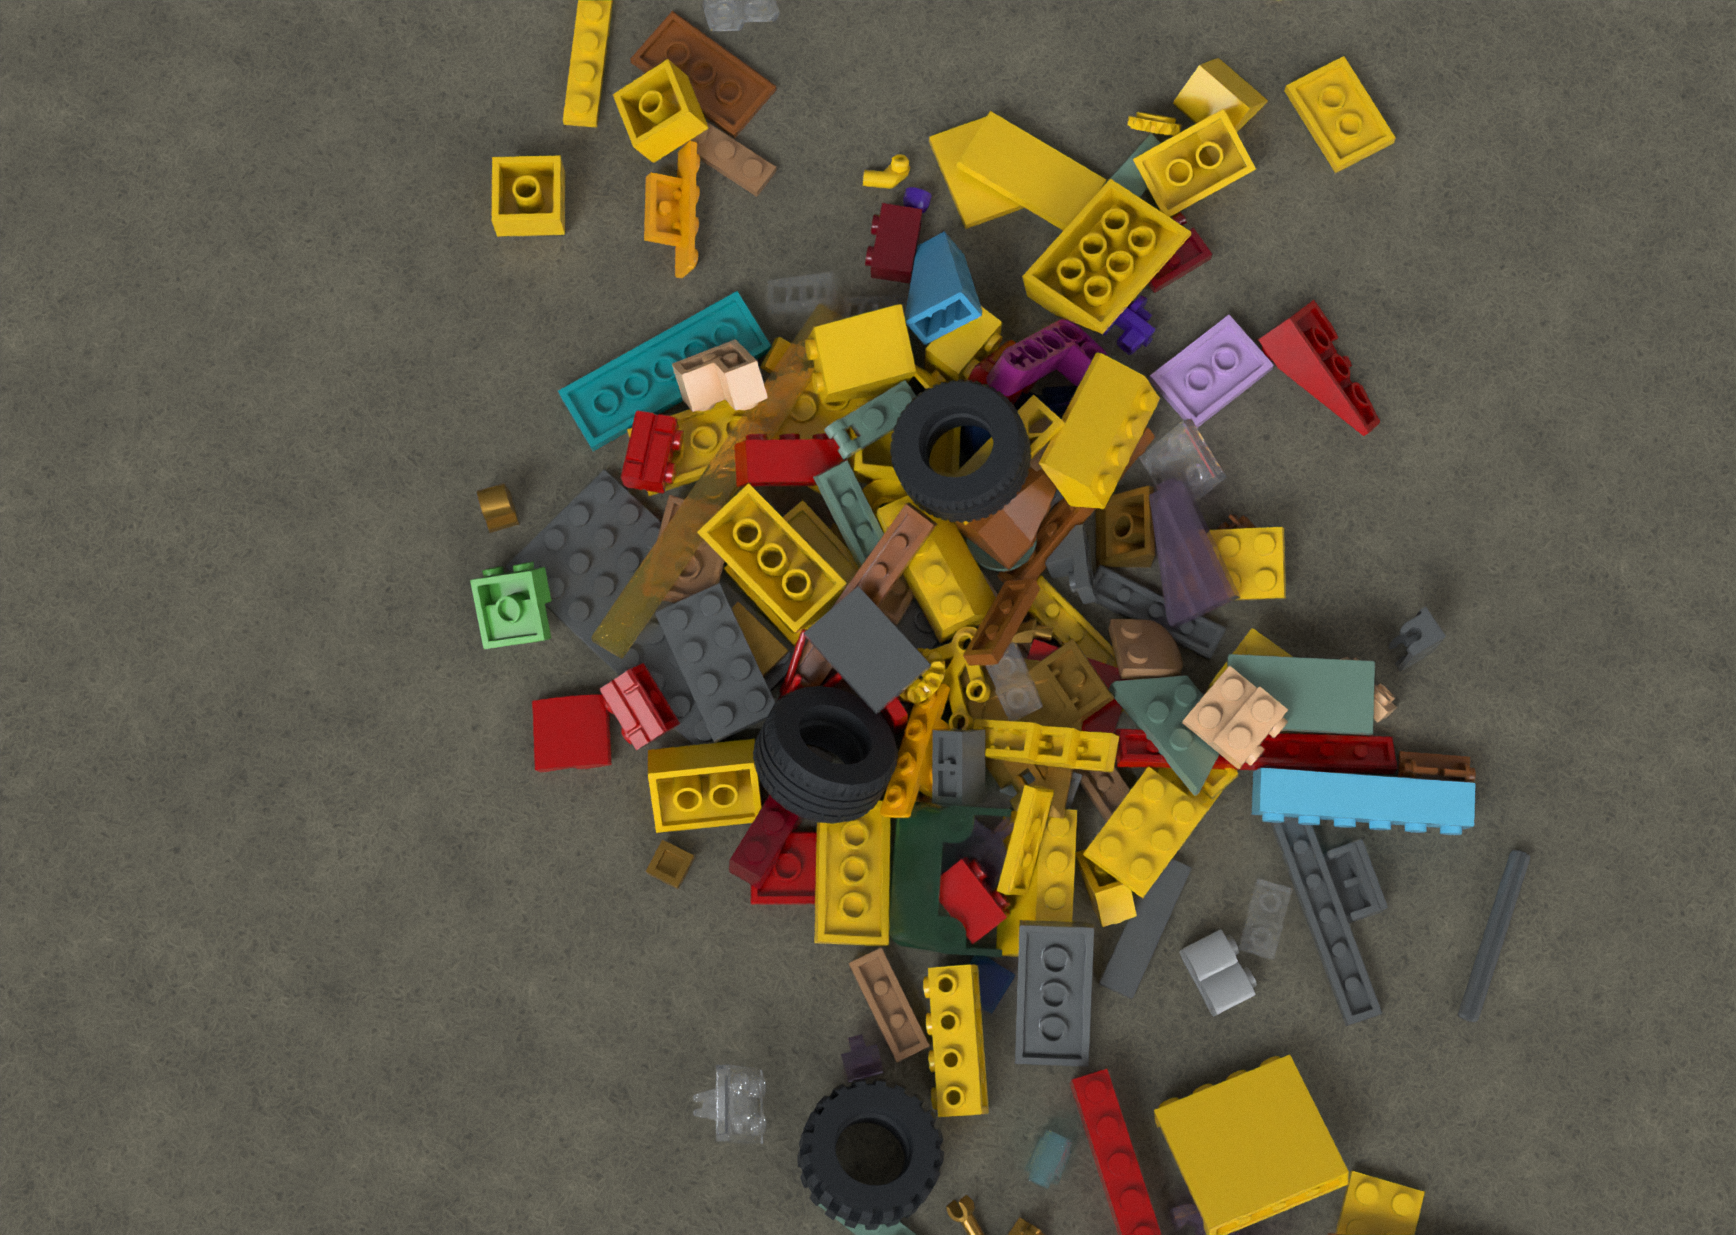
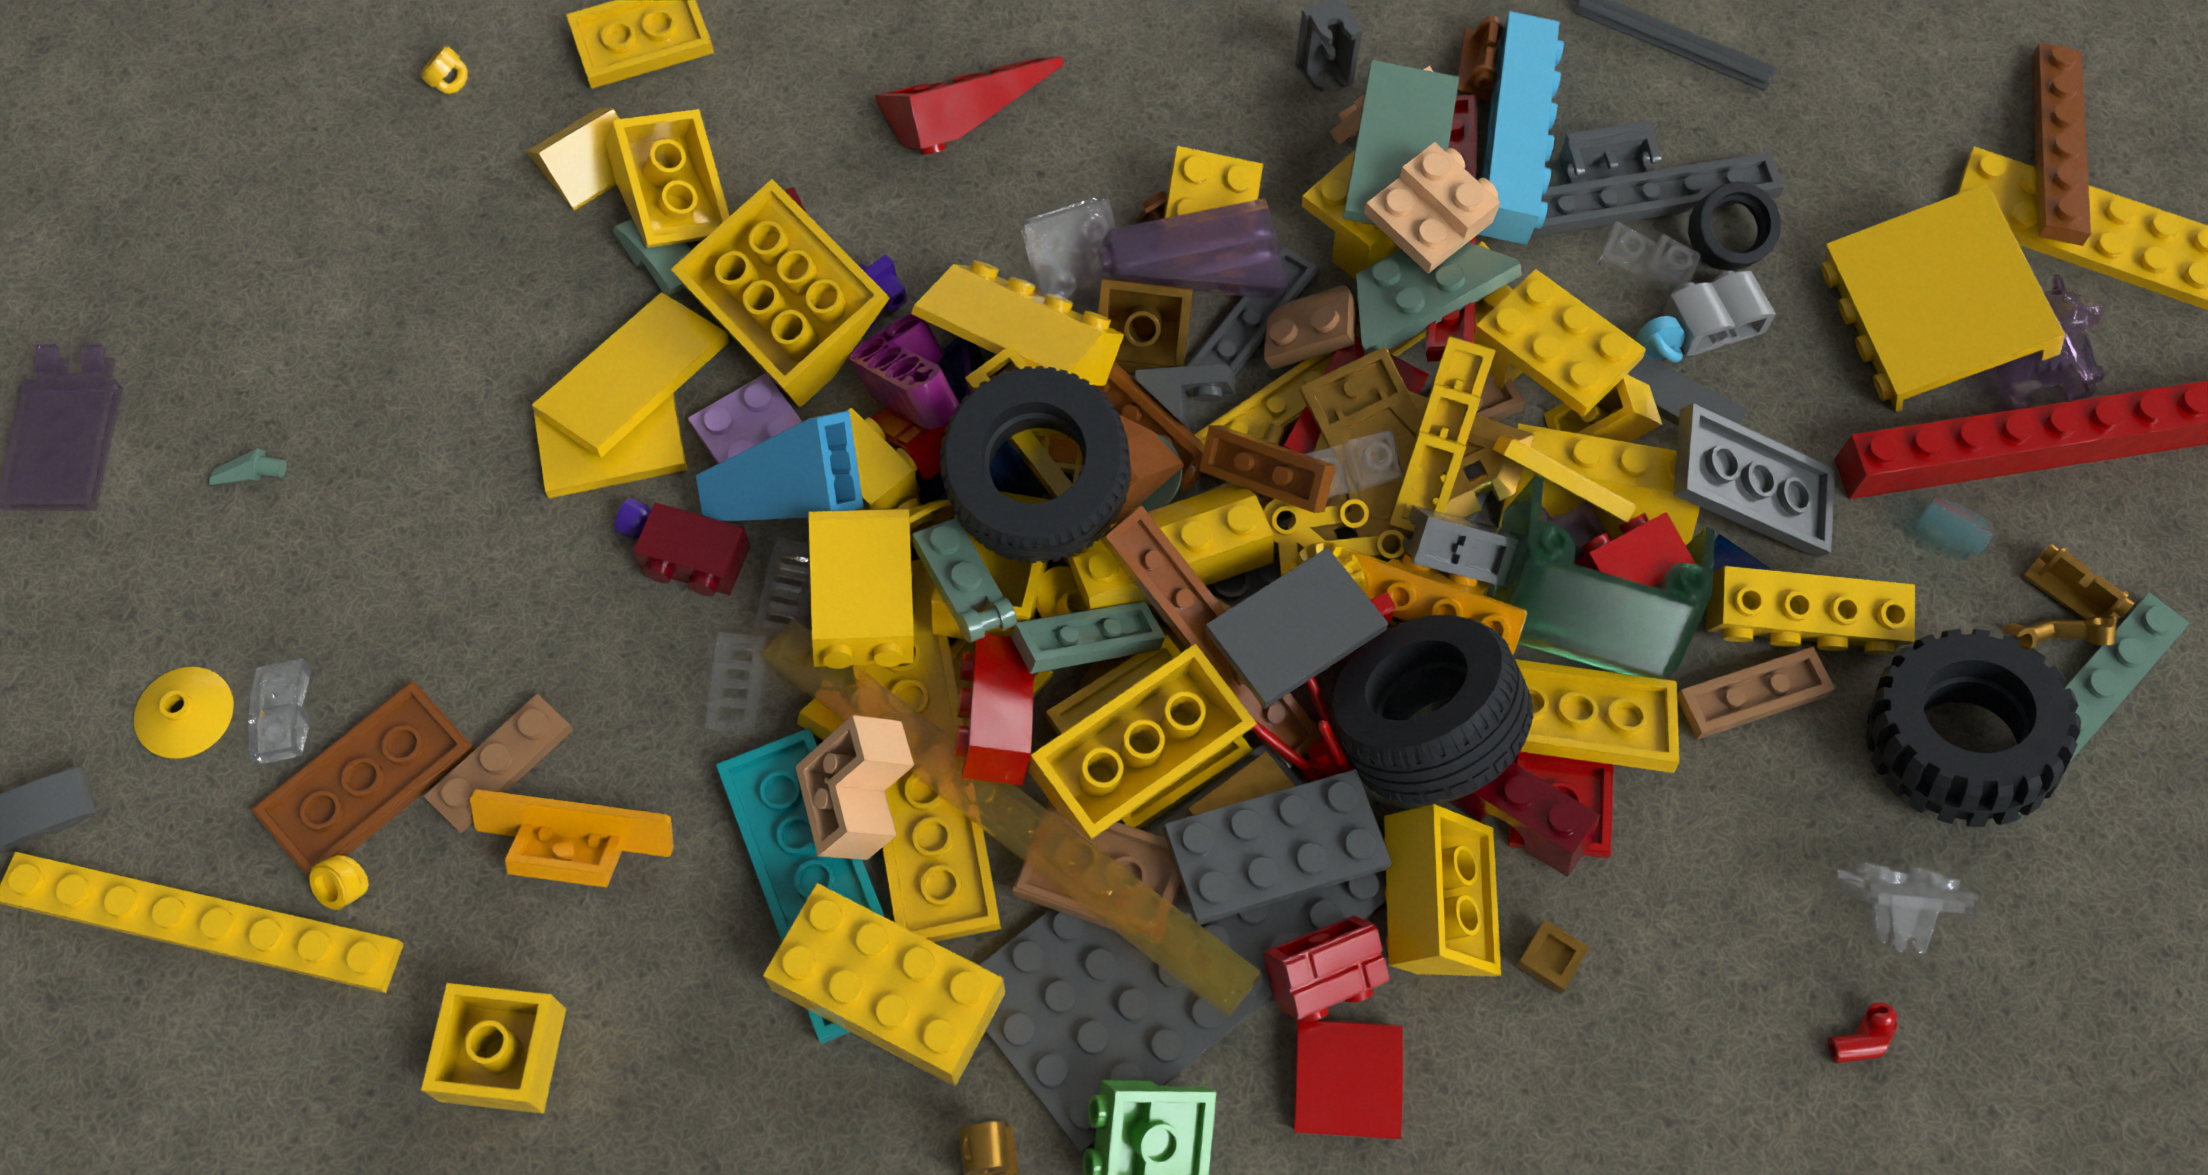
camera: 85 degrees left, 10 degrees down
(591, 422) = (885, 984): none -> yellow brick
(627, 73) = (338, 881): none -> yellow tile
(637, 1088) = (1871, 1037): none -> red arm
(651, 452) = (947, 902): red brick -> none
(660, 111) = (412, 831): yellow brick -> none
(862, 1060) = (1830, 734): clear purple tile -> none
(891, 176) = (588, 548): yellow arm -> none
(999, 264) = (743, 419): none -> lavender plate
(1154, 123) = (602, 221): yellow gear -> none
(1184, 926) = (1662, 339): none -> medium azure tile
(1211, 372) = (948, 211): lavender plate -> none
(1270, 981) = (1760, 206): none -> black tyre

